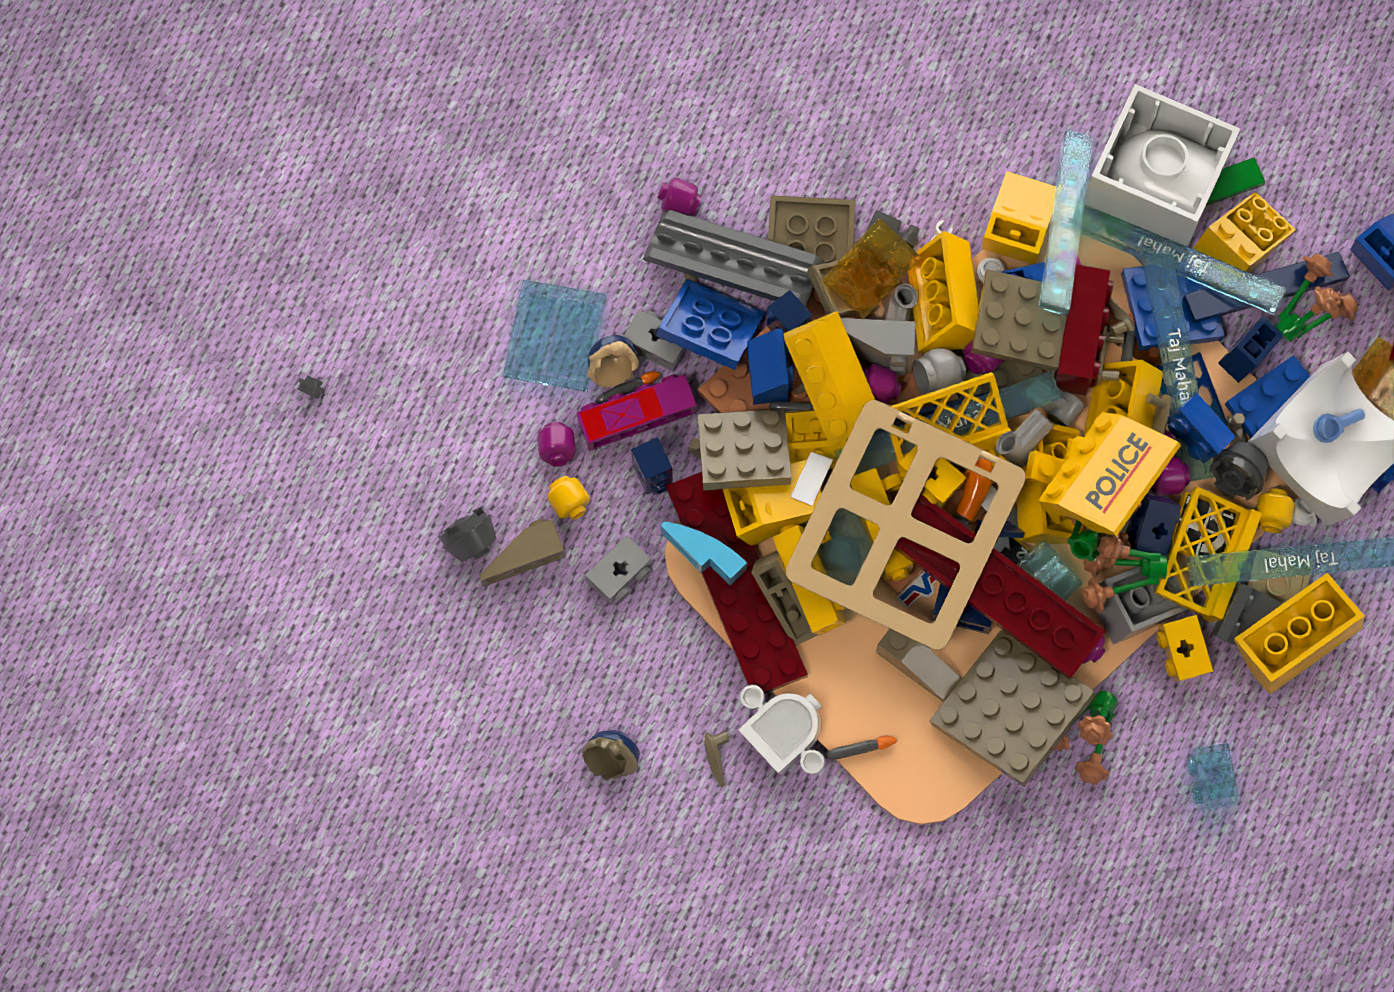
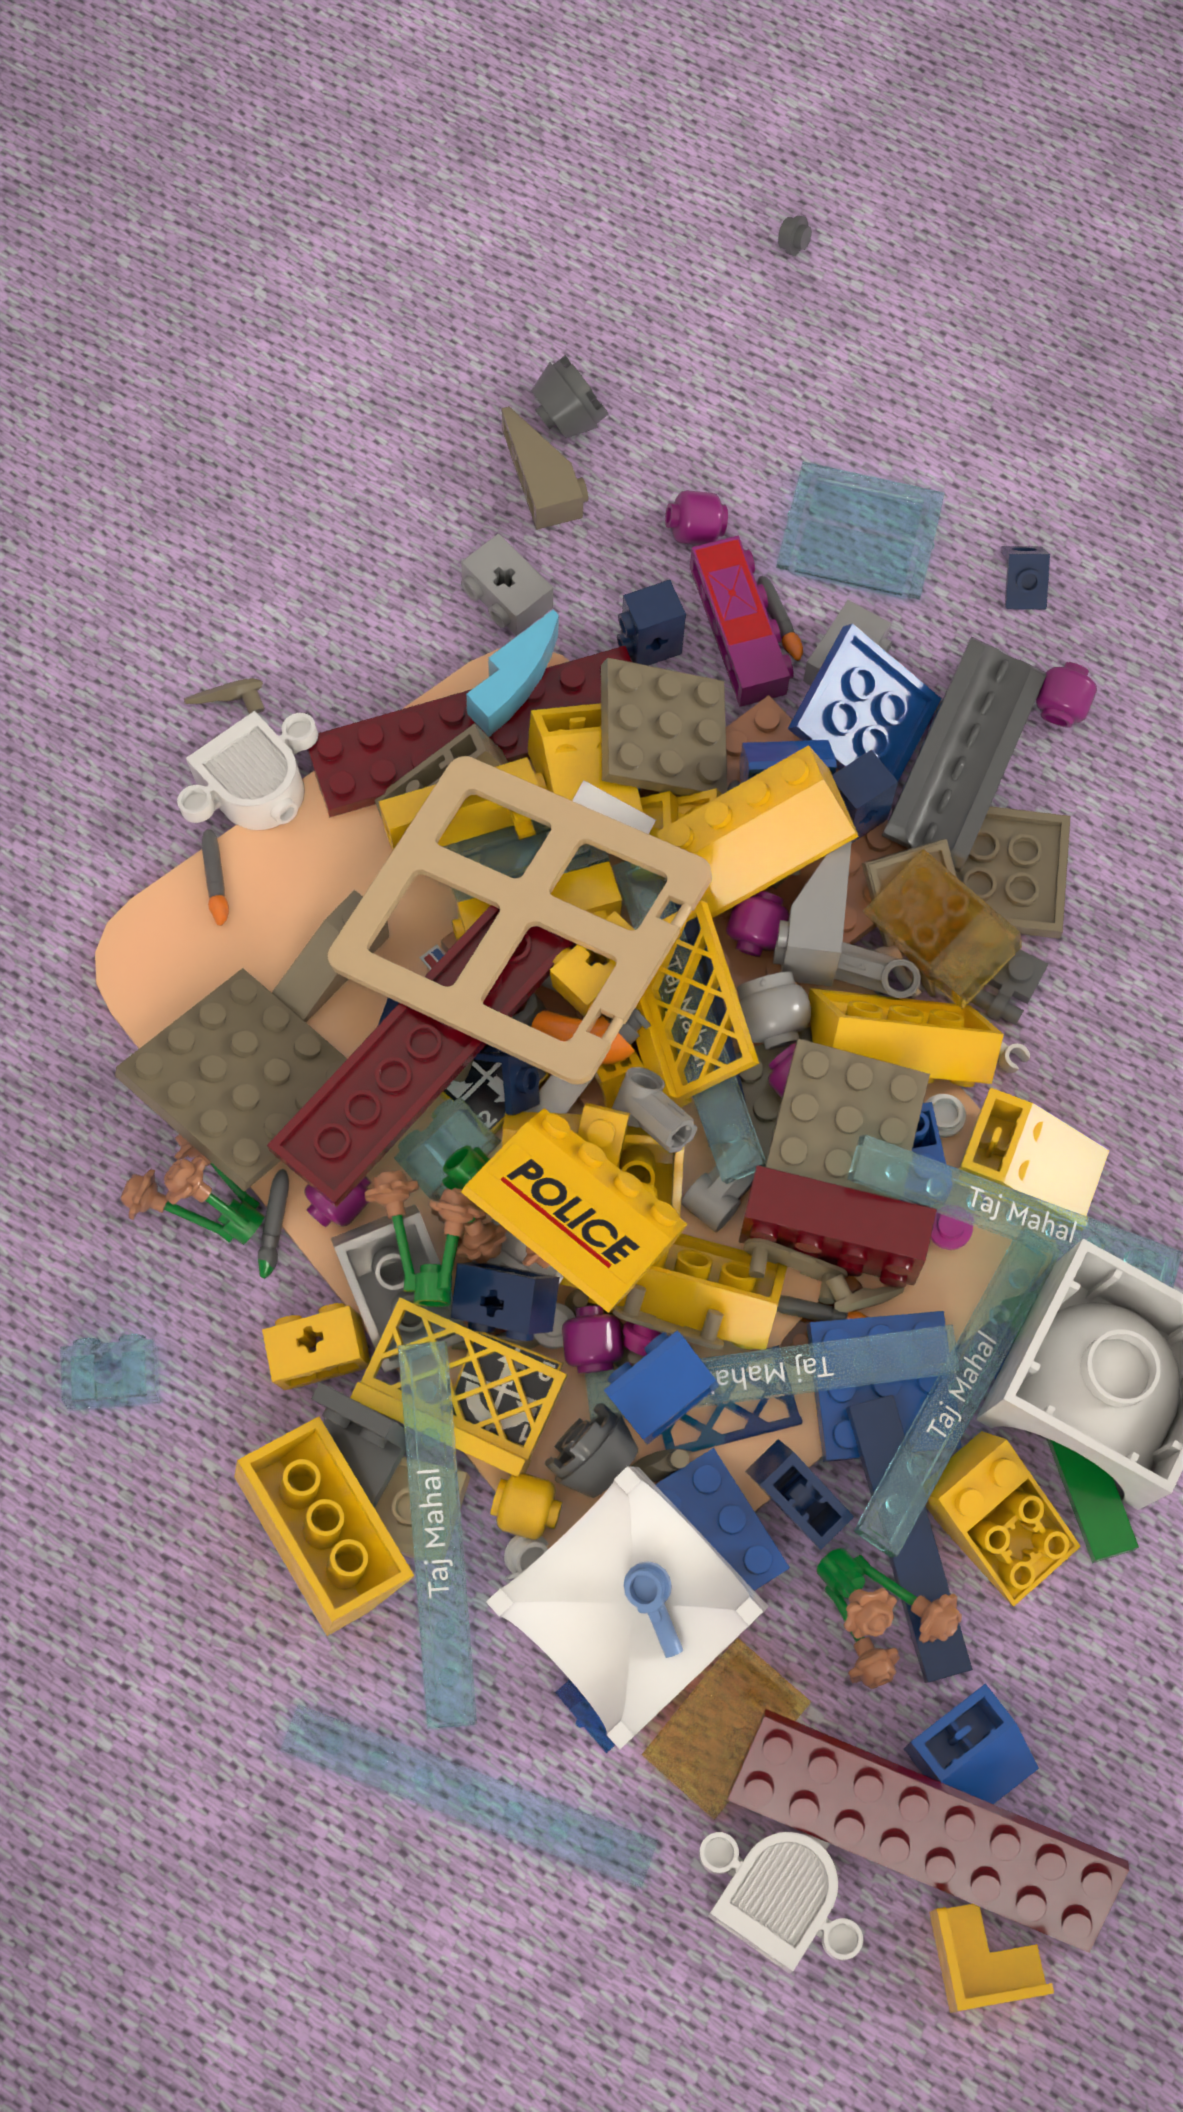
camera: 90 degrees right, 5 degrees down
(568, 498) = (617, 528): yellow head -> none
(584, 223) = (1026, 577): none -> dark blue bracket
(611, 754) = (243, 558): dark tan hair -> none
(612, 361) = (815, 586): tan hair -> none
(1120, 689) = (268, 1254): none -> dark grey piece

